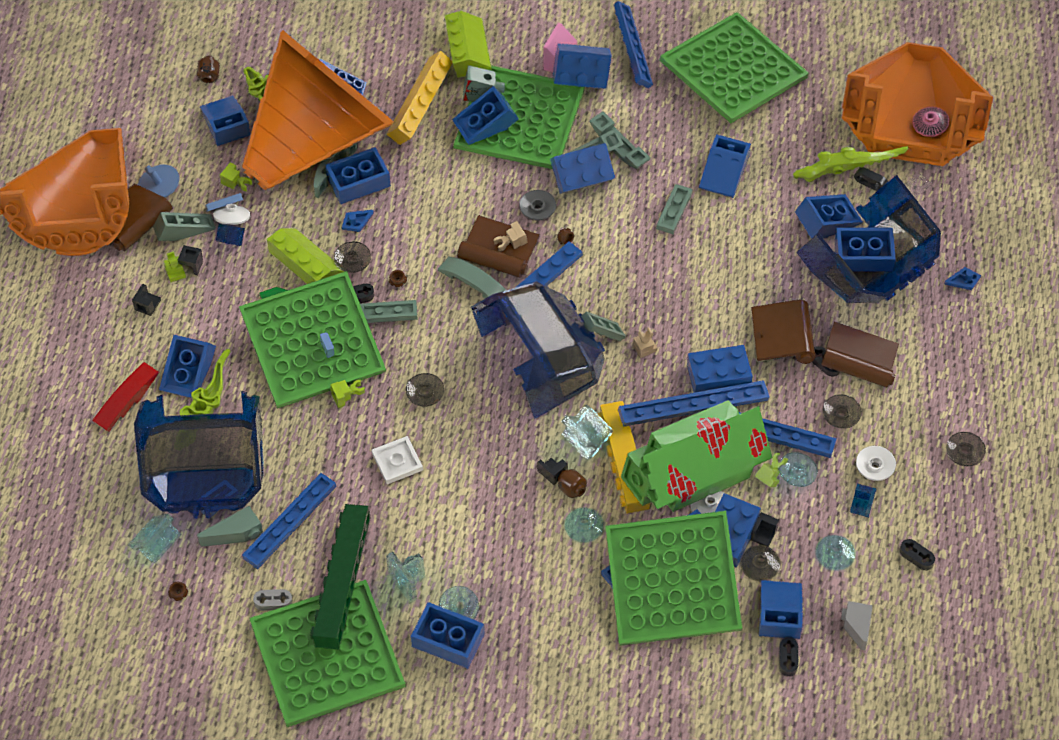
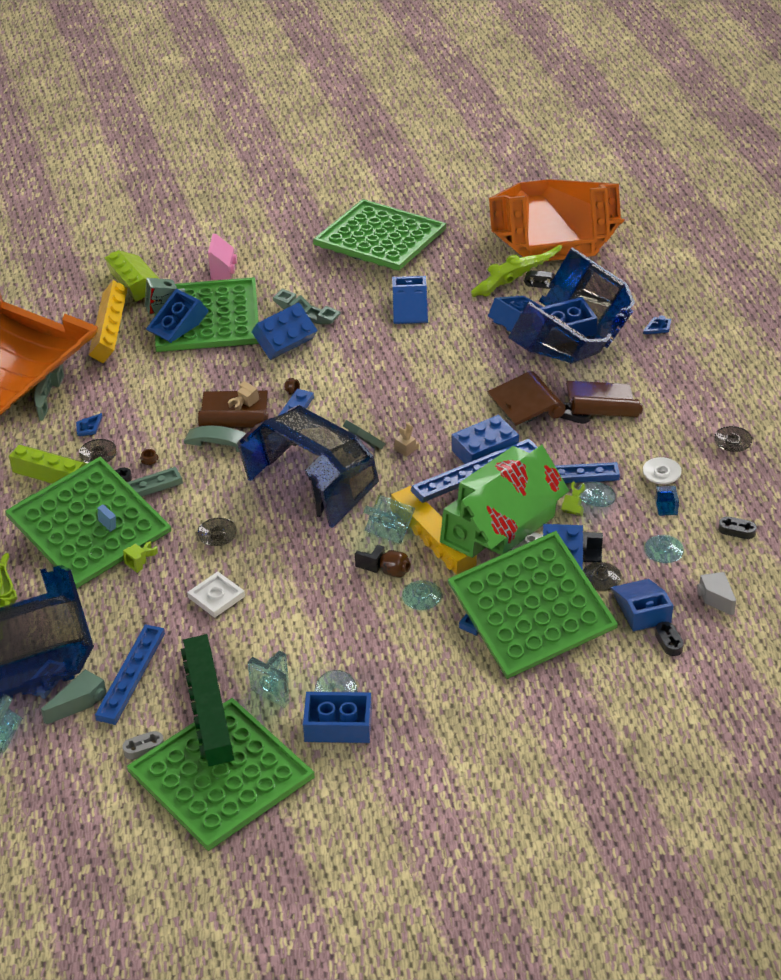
camera: 20 degrees left, 15 degrees down
(177, 586) = (39, 767): reddish brown plate -> none
(358, 175) = (76, 389): blue brick -> none
(537, 199) = (255, 369): dark grey dish -> none
(582, 65) = (247, 260): blue brick -> none
(633, 44) = (286, 245): blue plate -> none
(674, 209) = (380, 342): sand green plate -> none
(842, 404) = (610, 442): clear smoke dish -> none
(933, 126) = (567, 229): dish -> none

